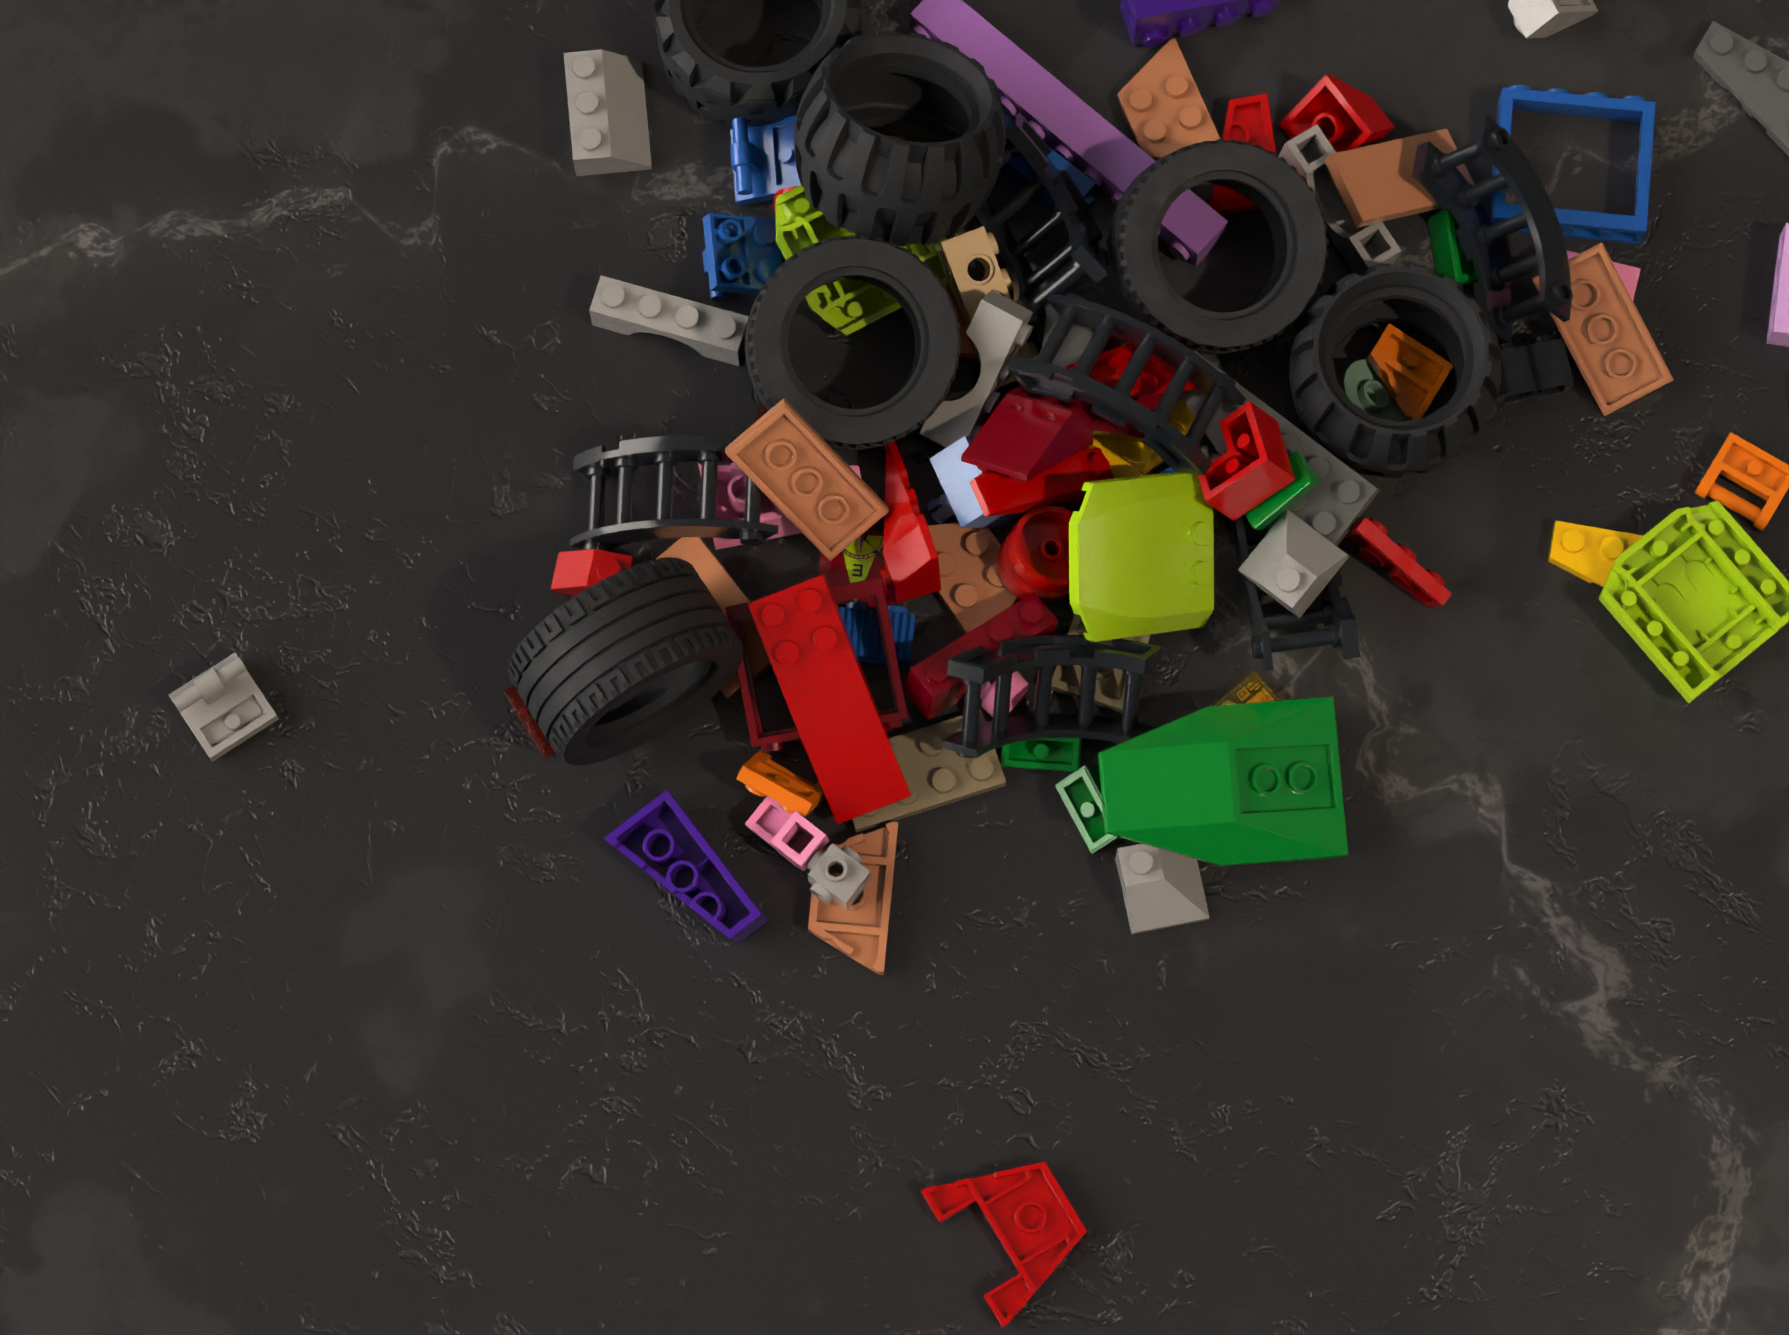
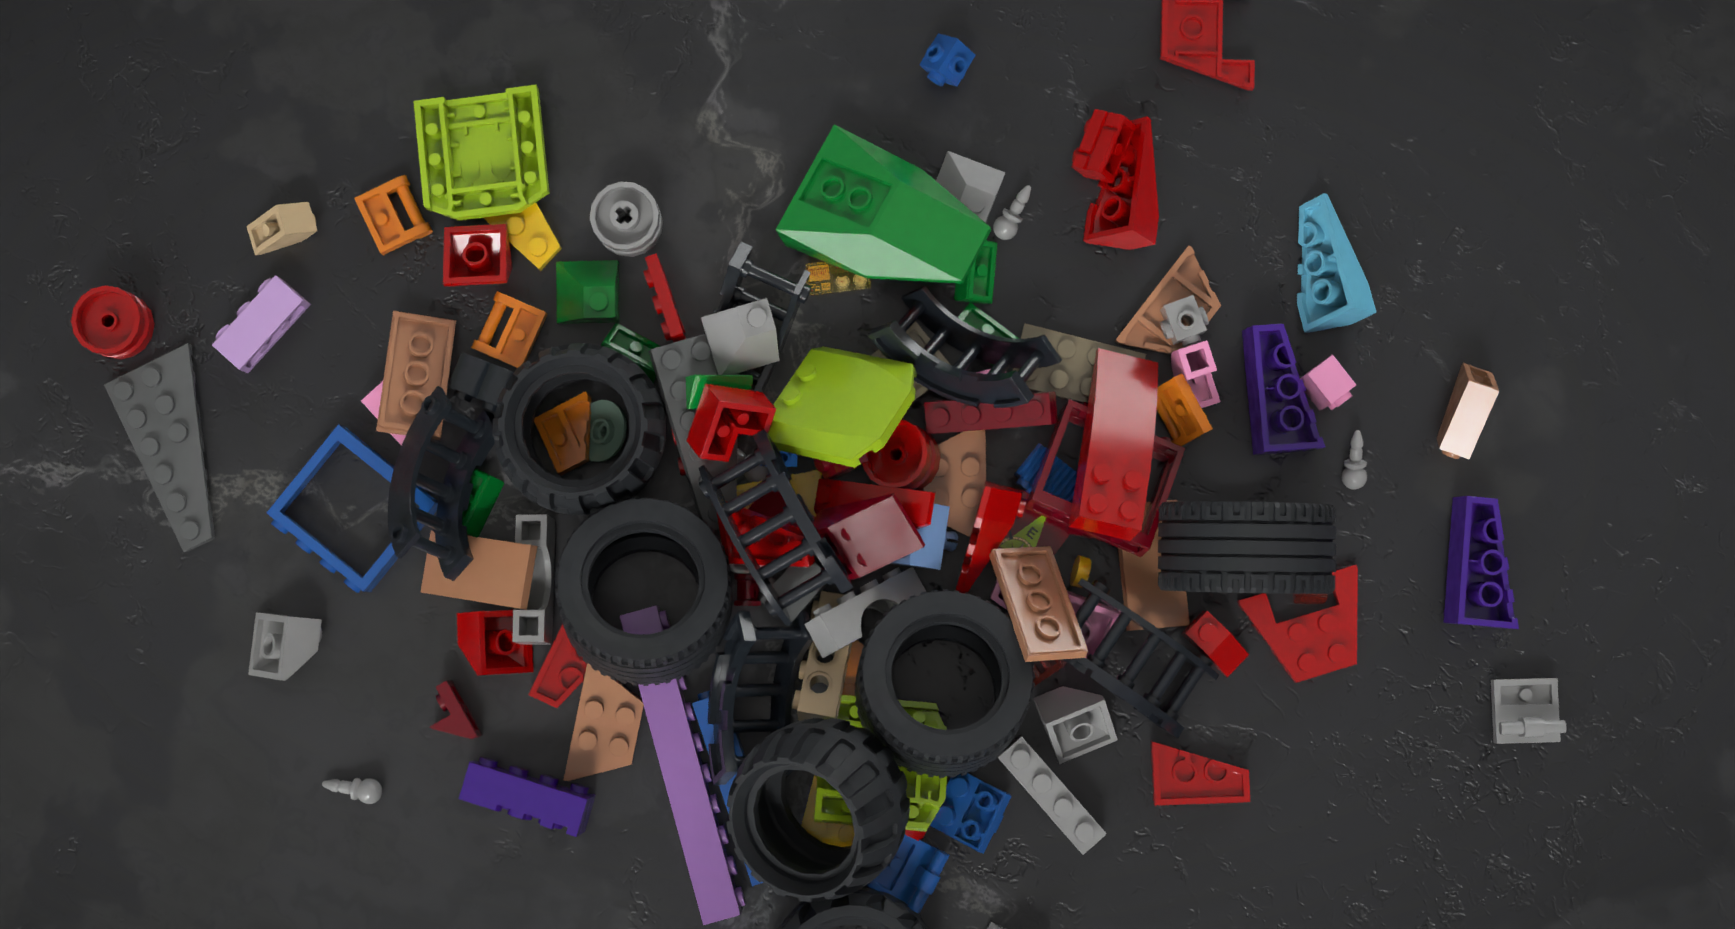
camera: 140 degrees left, 10 degrees up
(359, 812) = (1477, 566): none -> dark purple wedge
(473, 981) = (1467, 411): none -> slope
(478, 656) = (1314, 641): none -> red wing
(529, 428) = (1195, 779): none -> red wing
(553, 844) = (1354, 474): none -> light grey bar
(642, 908) = (1328, 384): none -> bright pink brick
(693, 403) = (1075, 721): none -> light grey slope
(703, 1033) = (1331, 278): none -> medium azure wedge
(781, 561) = (1080, 569): none -> yellow tile
(980, 980) = (1128, 209): none -> red wedge
(1044, 1020) = (1103, 146): none -> red brick
(1094, 878) = (1006, 226): none -> light grey bar
(1274, 1007) = (947, 60): none -> blue brick
(1318, 31) = (461, 720): none -> dark red slope
(1403, 500) = (632, 346): none -> green slope
(1477, 629) = (613, 206): none -> light grey wheel
(1487, 530) = (587, 292): none -> green slope
(1529, 442) = (518, 334): none -> orange plate
(1626, 486) = (476, 255): none -> red slope

